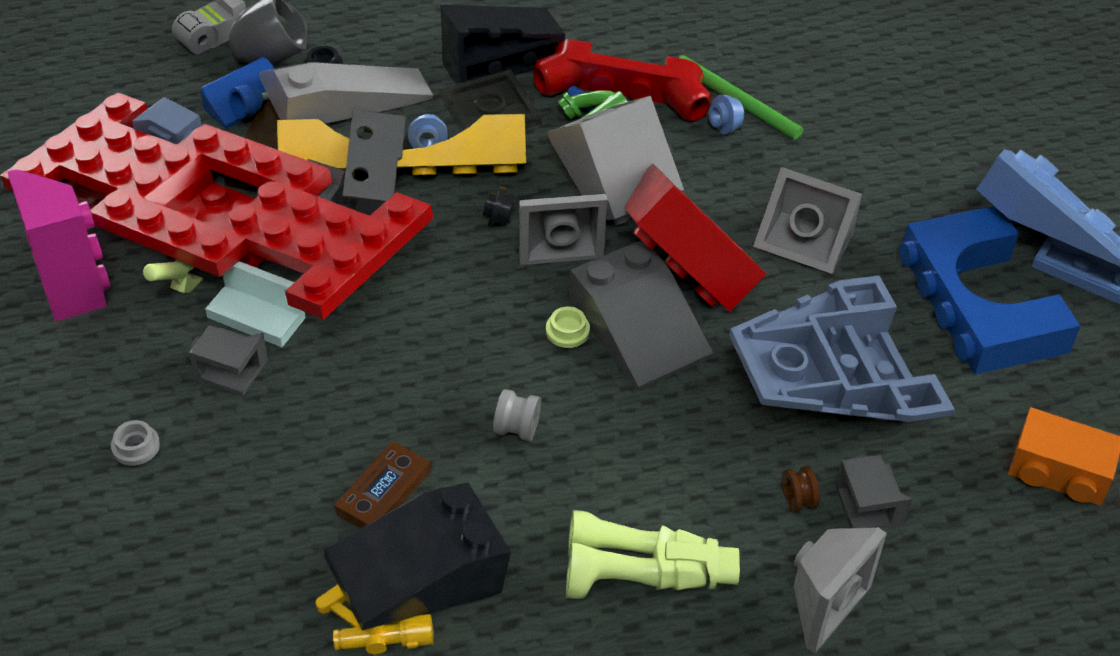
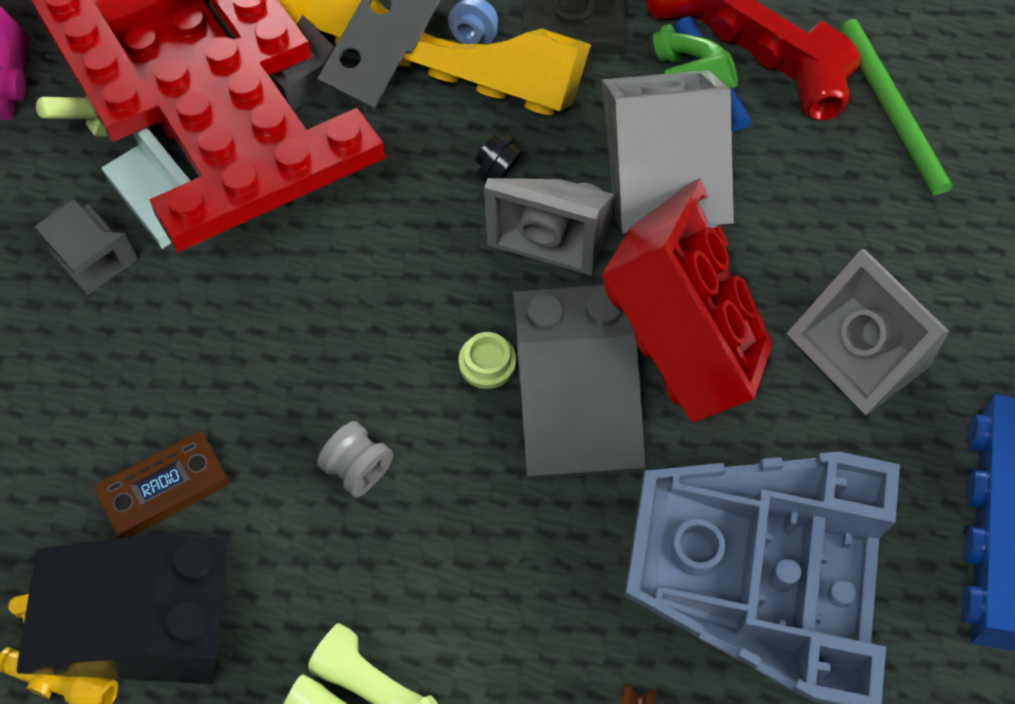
camera: 30 degrees right, 15 degrees up
(726, 114) = (858, 128): medium blue plate -> none

